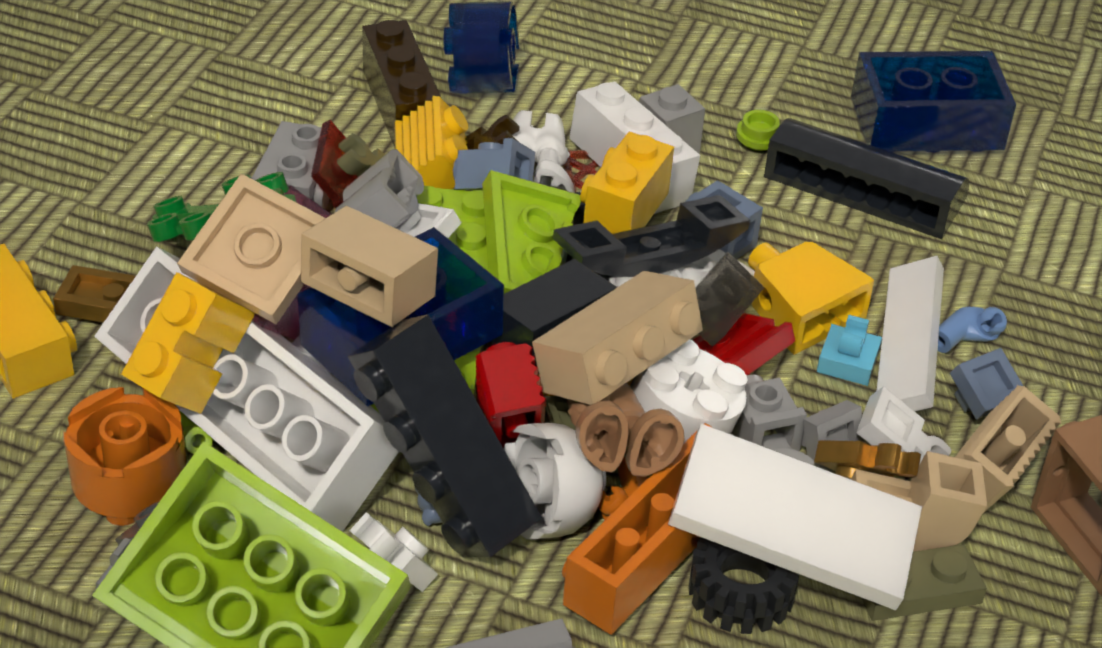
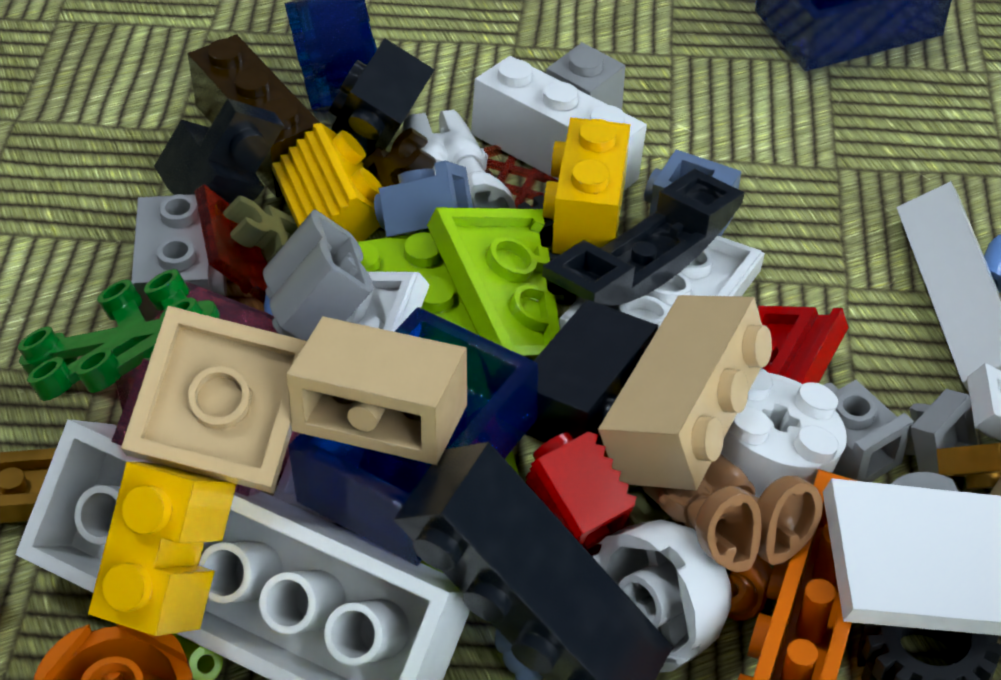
camera: 15 degrees left, 5 degrees up
(359, 102) = (222, 154): none -> black brick
(494, 87) = (379, 96): none -> black brick
(724, 297) = (751, 274): clear smoke plate -> none
(757, 129) = (680, 74): lime plate -> none
(808, 290) = (825, 257): yellow torso -> none
(850, 351) = (902, 321): medium azure tile -> none
(865, 177) = (821, 104): black brick -> none

